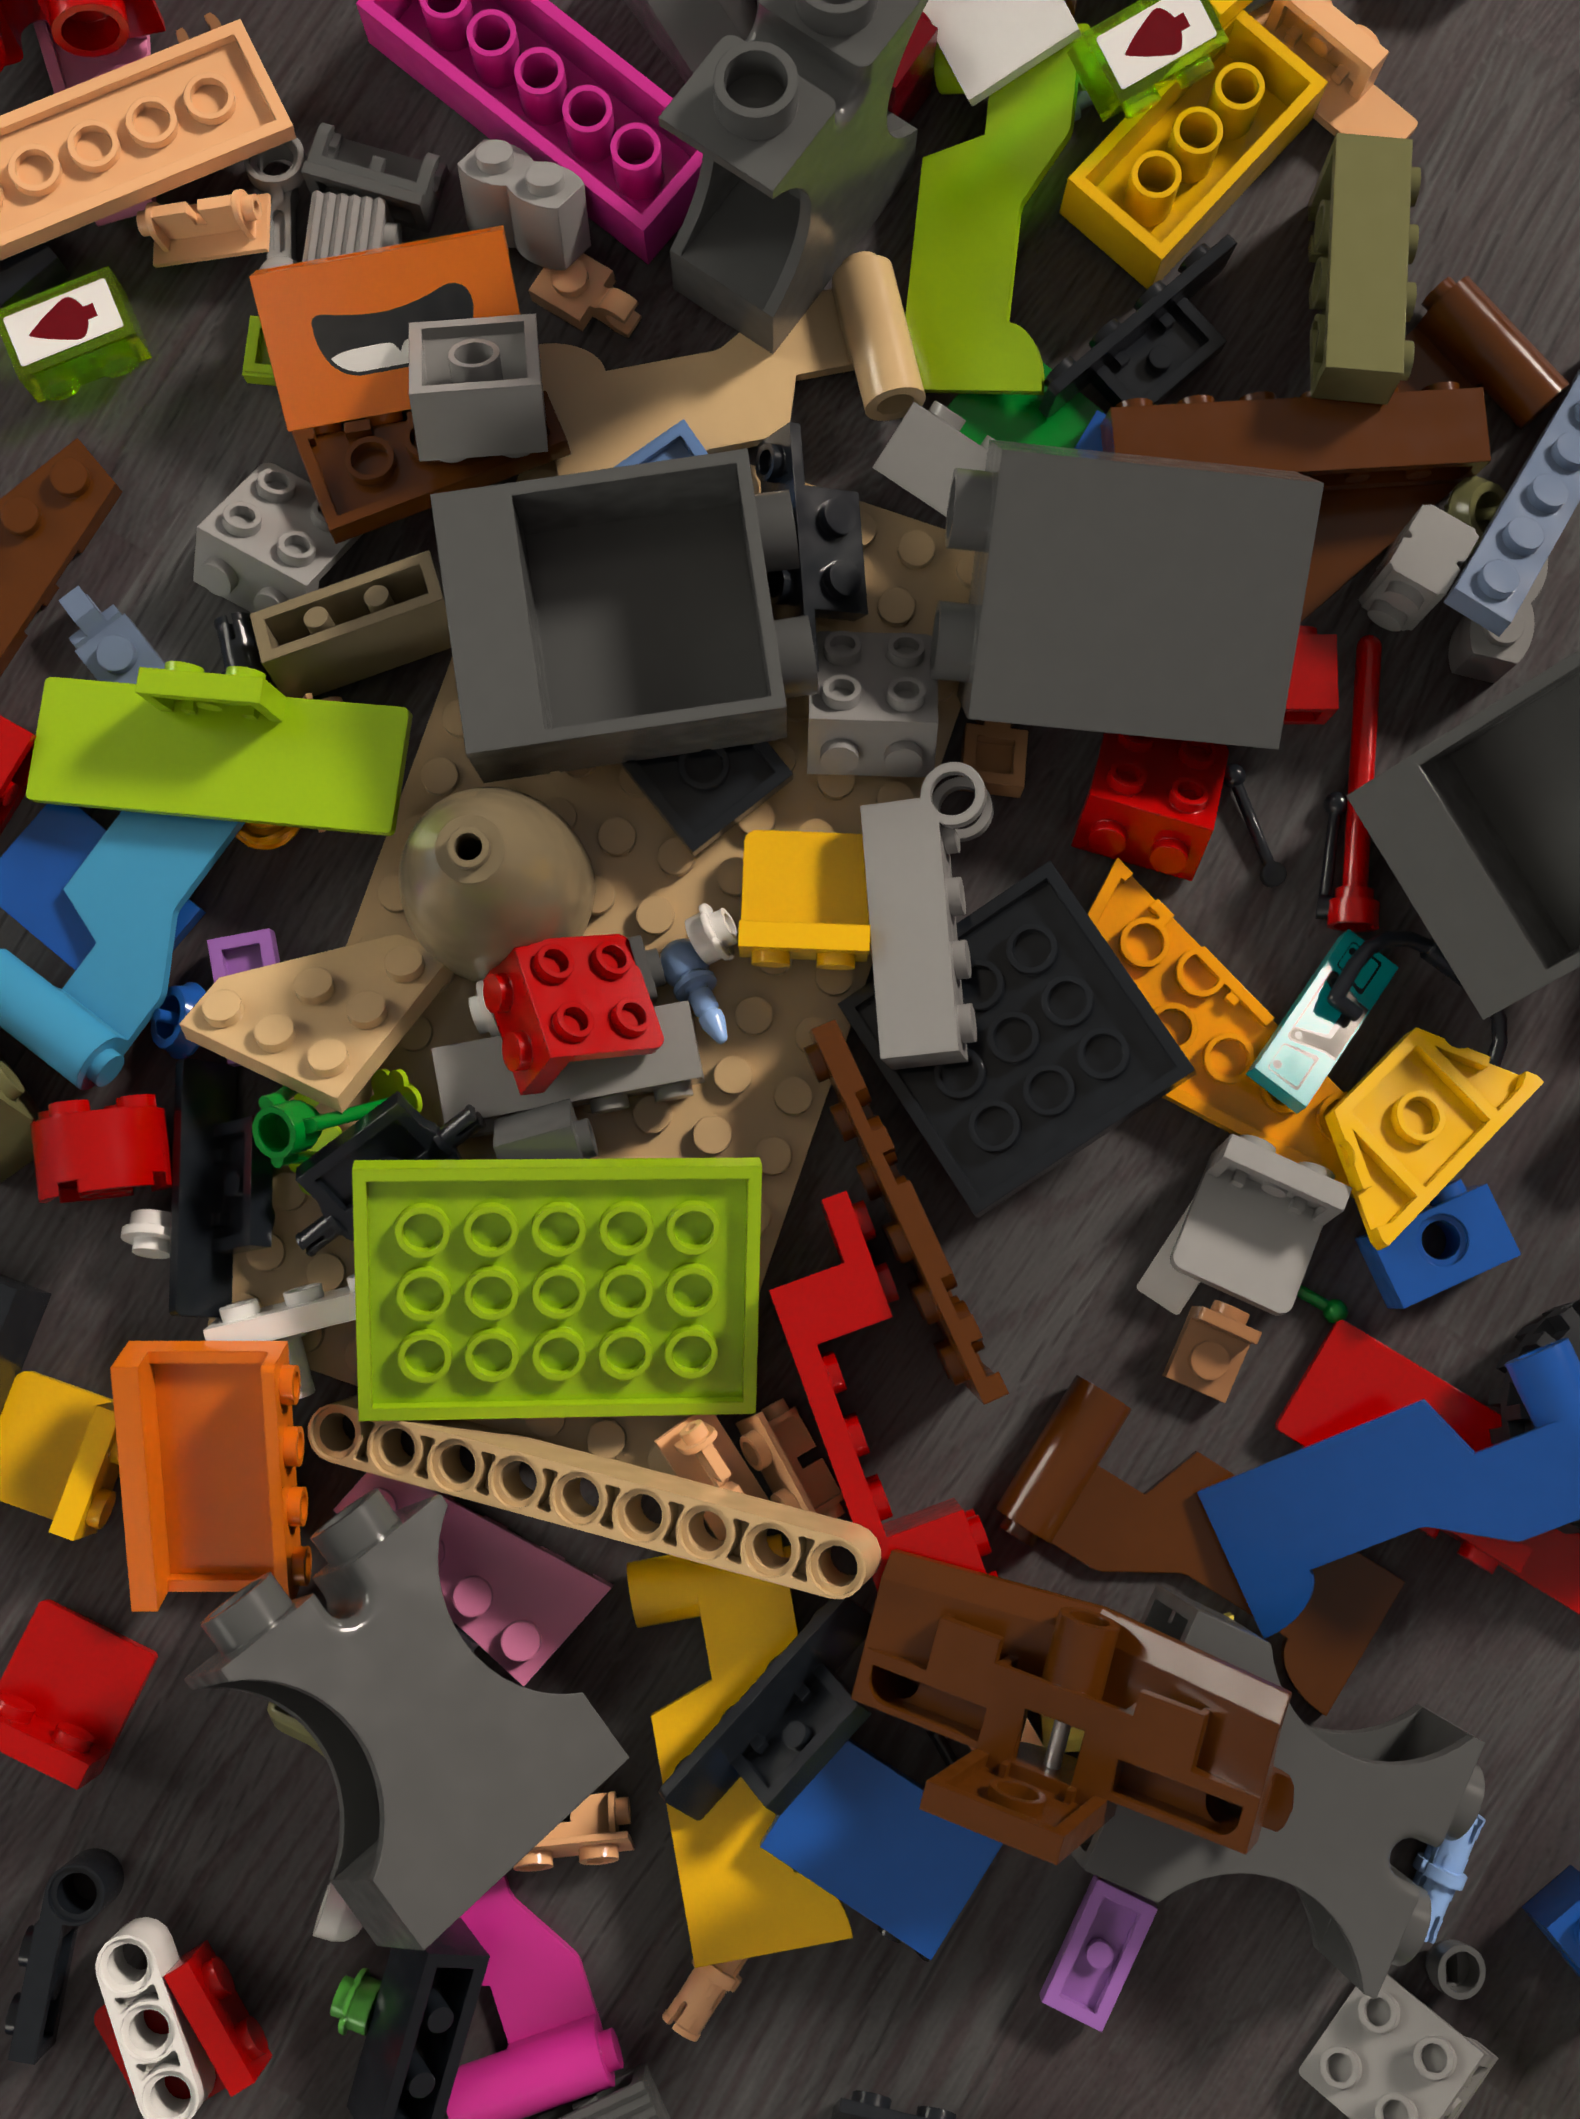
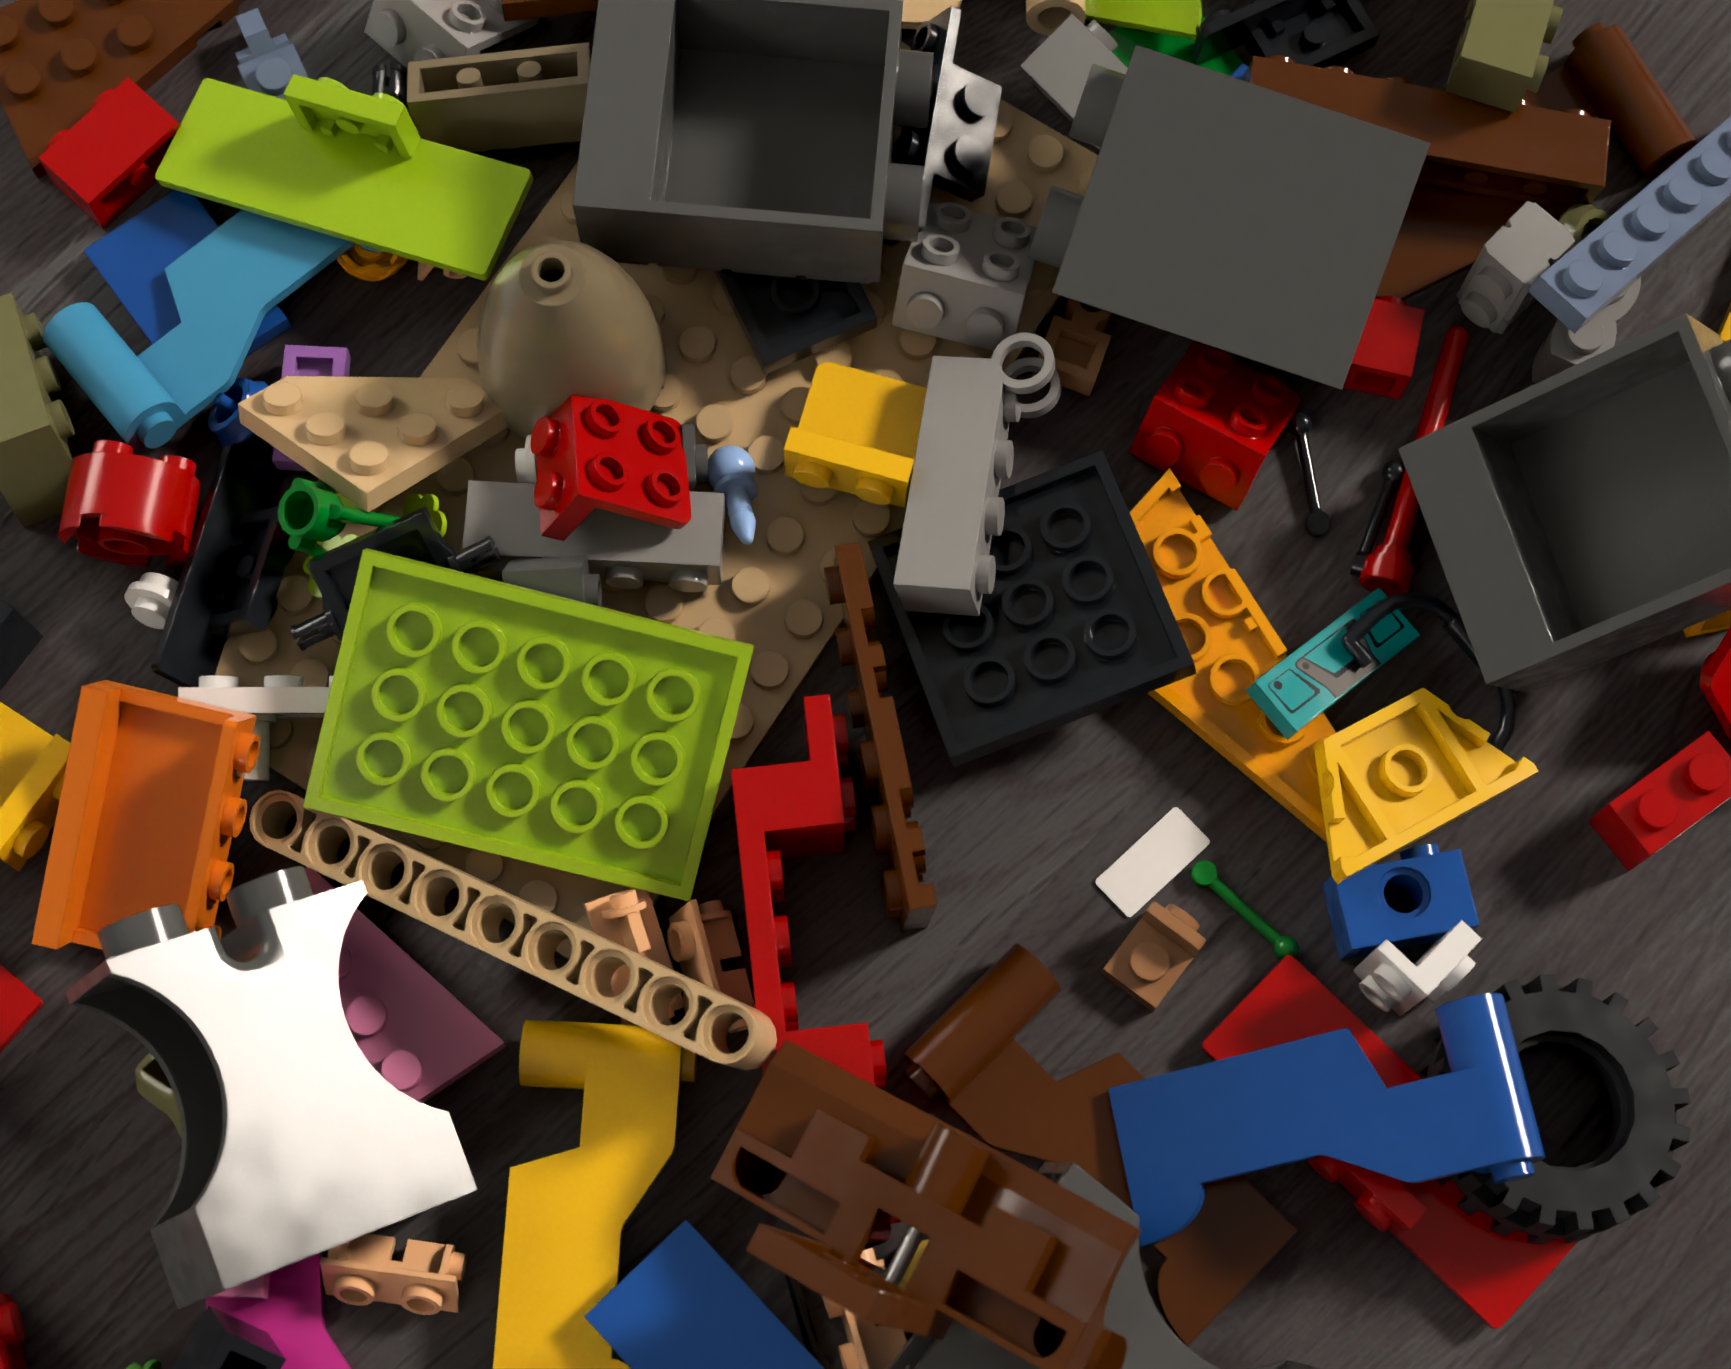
camera: 10 degrees right, 10 degrees down
(335, 1918) = (148, 1299): white hinge -> none
(712, 934) = (763, 445): white plate -> none
(783, 1724) = (634, 1195): black bracket -> none
(1256, 1222) = (1226, 837): light grey bracket -> none
(1480, 1315) = (1398, 984): none -> white bracket

